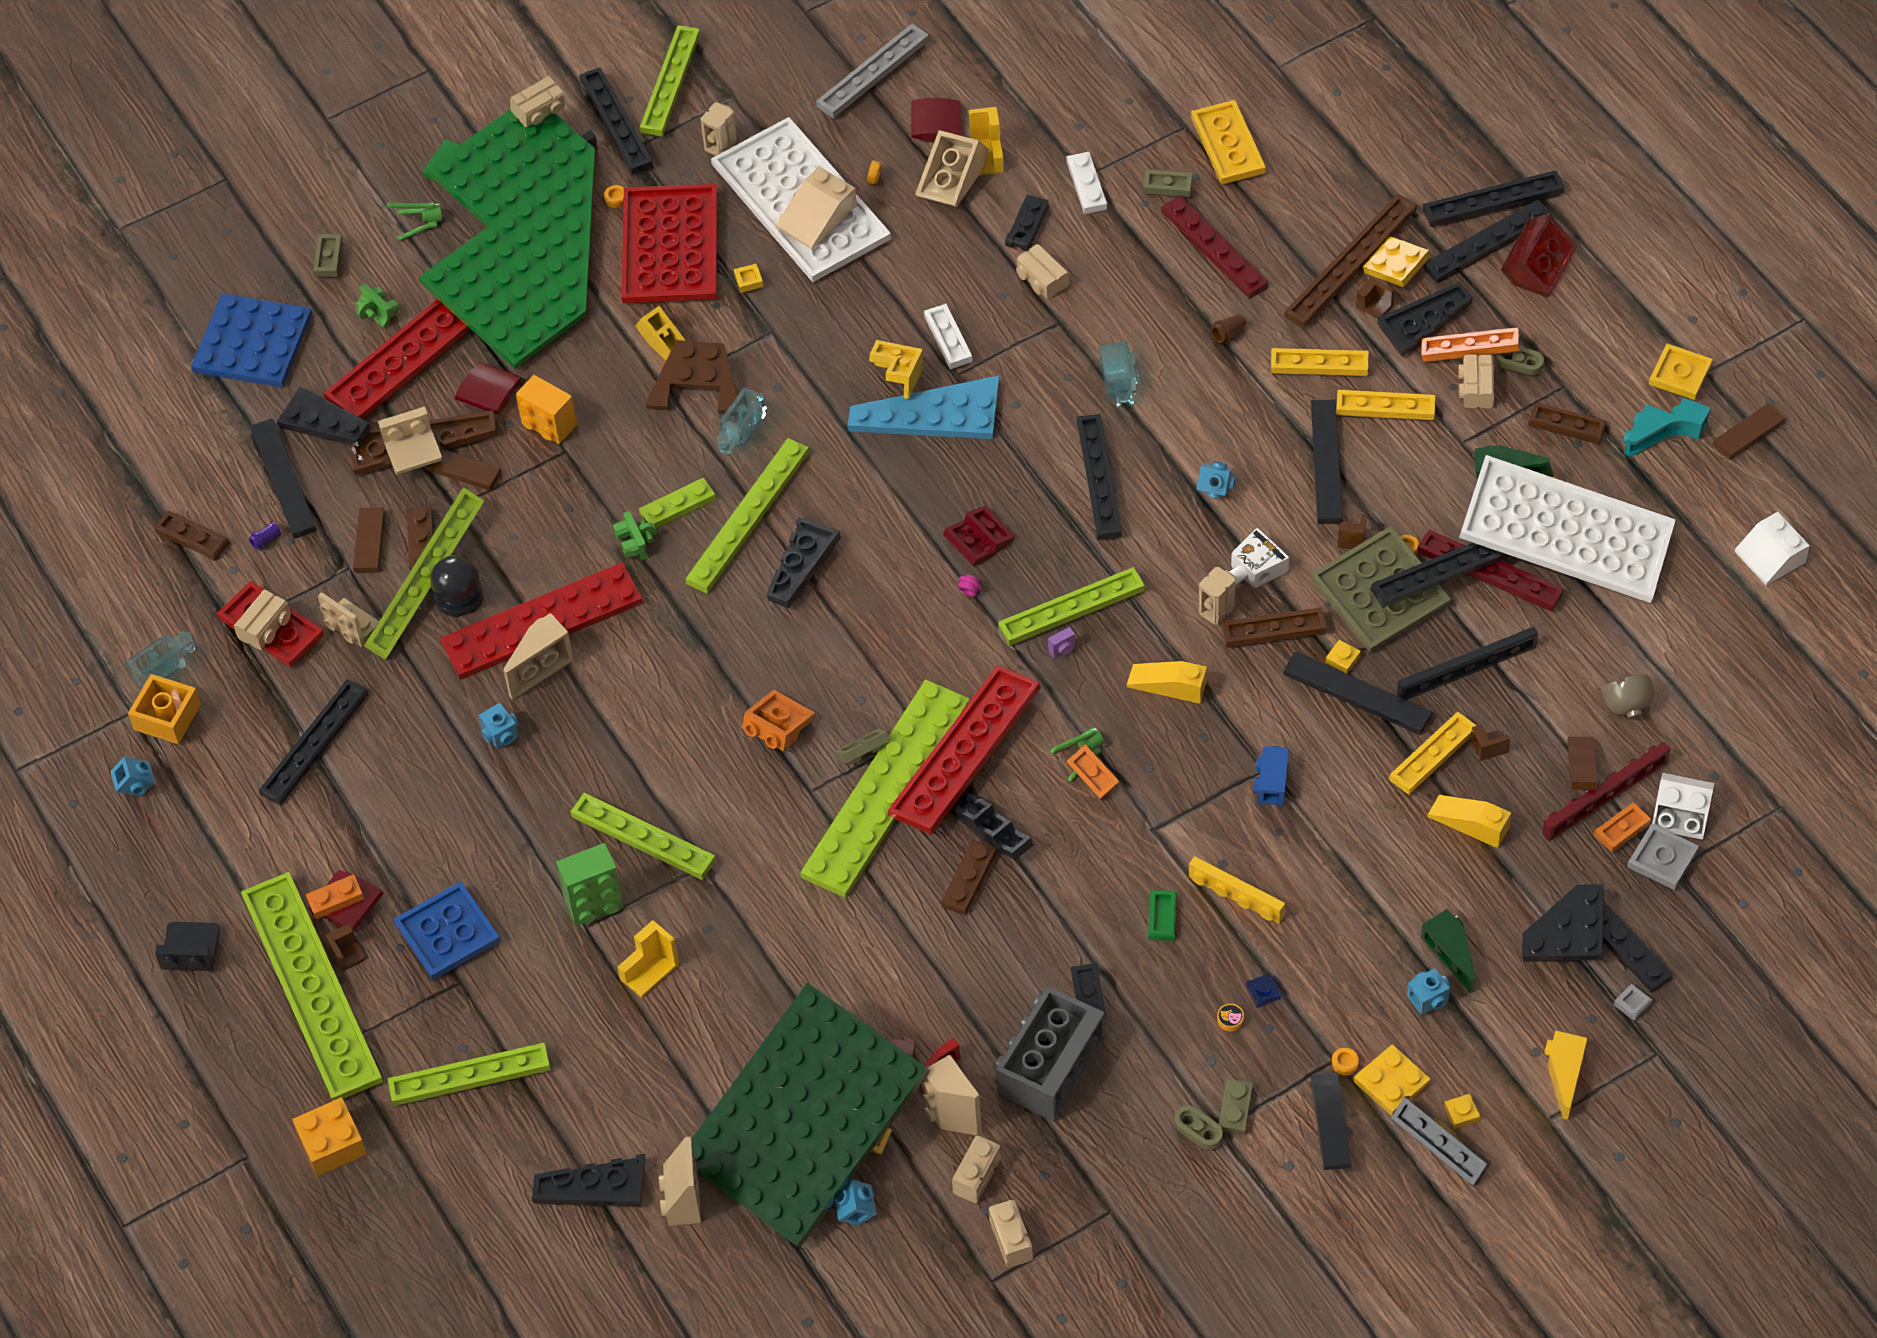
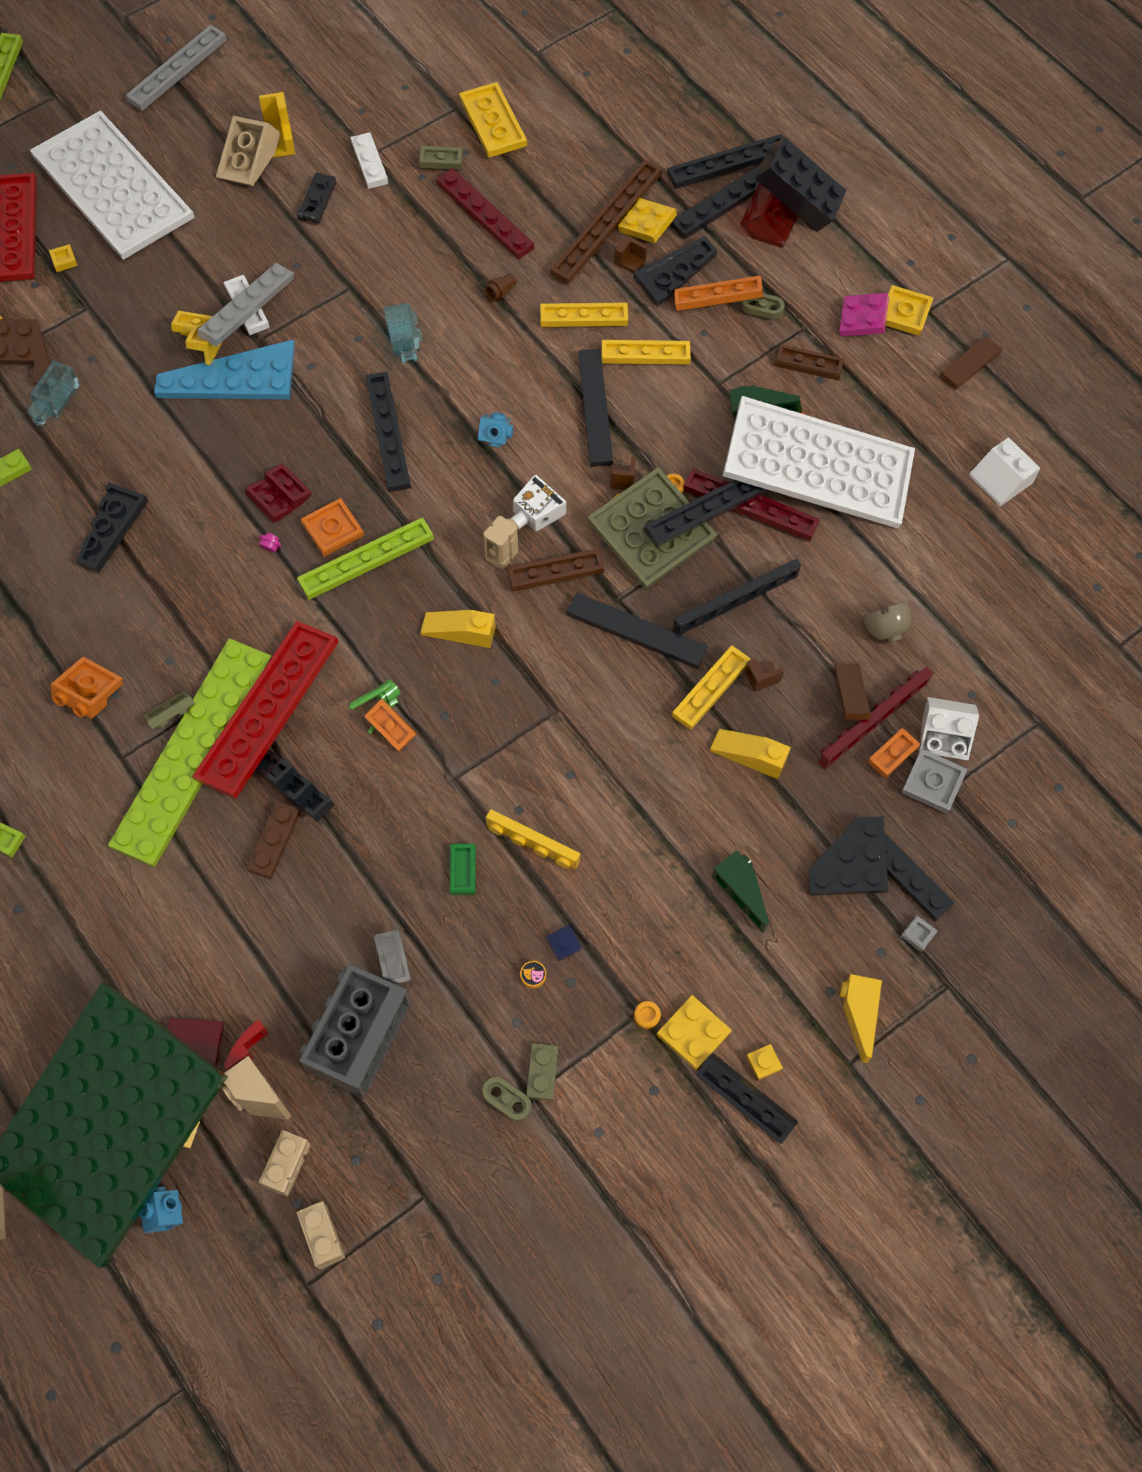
camera: 10 degrees left, 10 degrees up
(718, 129) = (34, 121): tan brick -> none
(747, 515) = (60, 484): lime plate -> none
(817, 207) = (124, 190): tan slope -> none
(874, 172) = (178, 157): light orange tile -> none
(932, 115) = (231, 103): dark red slope -> none
(949, 336) = (245, 304): none -> light grey plate
(1036, 573) = (332, 527): none -> orange tile
(1042, 272) = (331, 242): tan brick -> none
(1061, 643) = (357, 595): medium lavender plate -> none
(1273, 775) = (562, 718): blue brick -> none
(1330, 1121) = (637, 1085): black slope -> none
(1343, 656) = (621, 595): yellow plate -> none
(1428, 991) = (724, 937): dark azure brick -> none
(1477, 381) = (727, 326): tan brick -> none
(1570, 229) = (800, 184): none -> black brick
(1632, 374) = (864, 314): none -> dark pink plate
(1656, 425) = (889, 360): teal arch -> none

